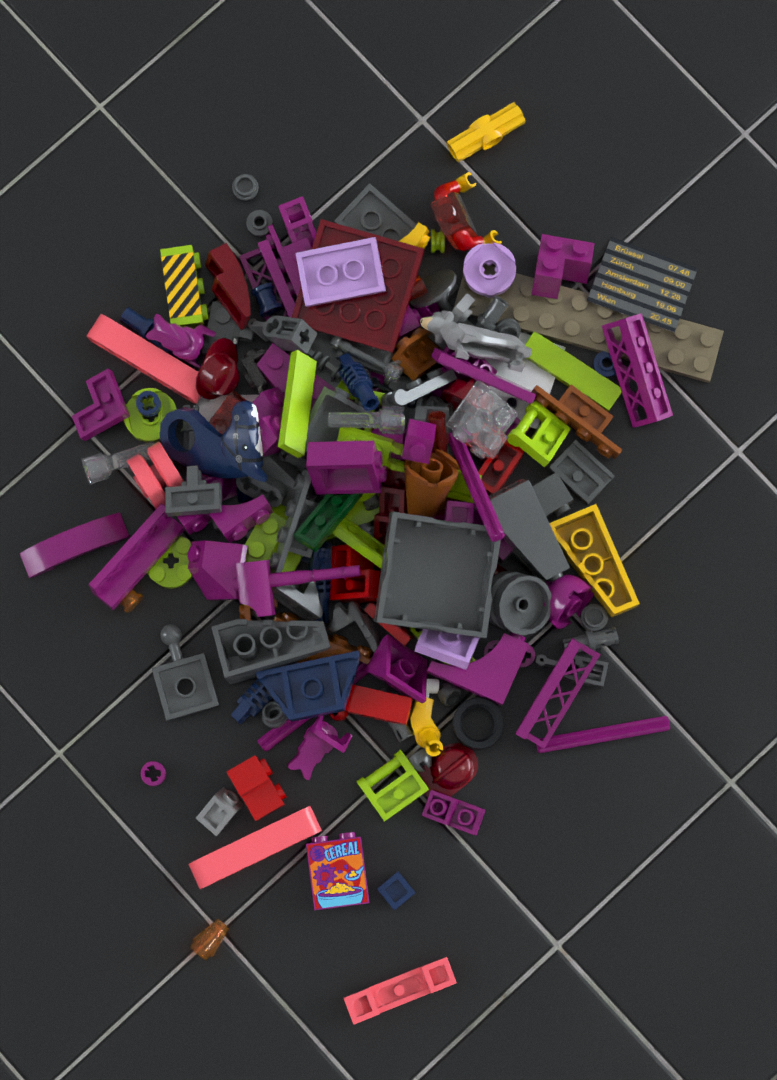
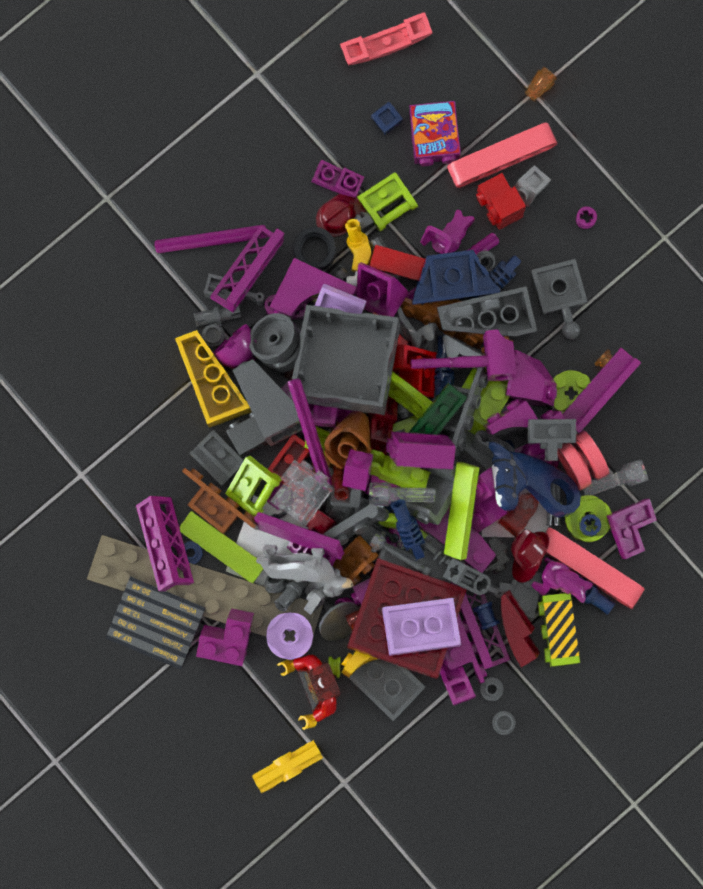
camera: 175 degrees left, 0 degrees up
(74, 543) = (653, 409): magenta slope -> none

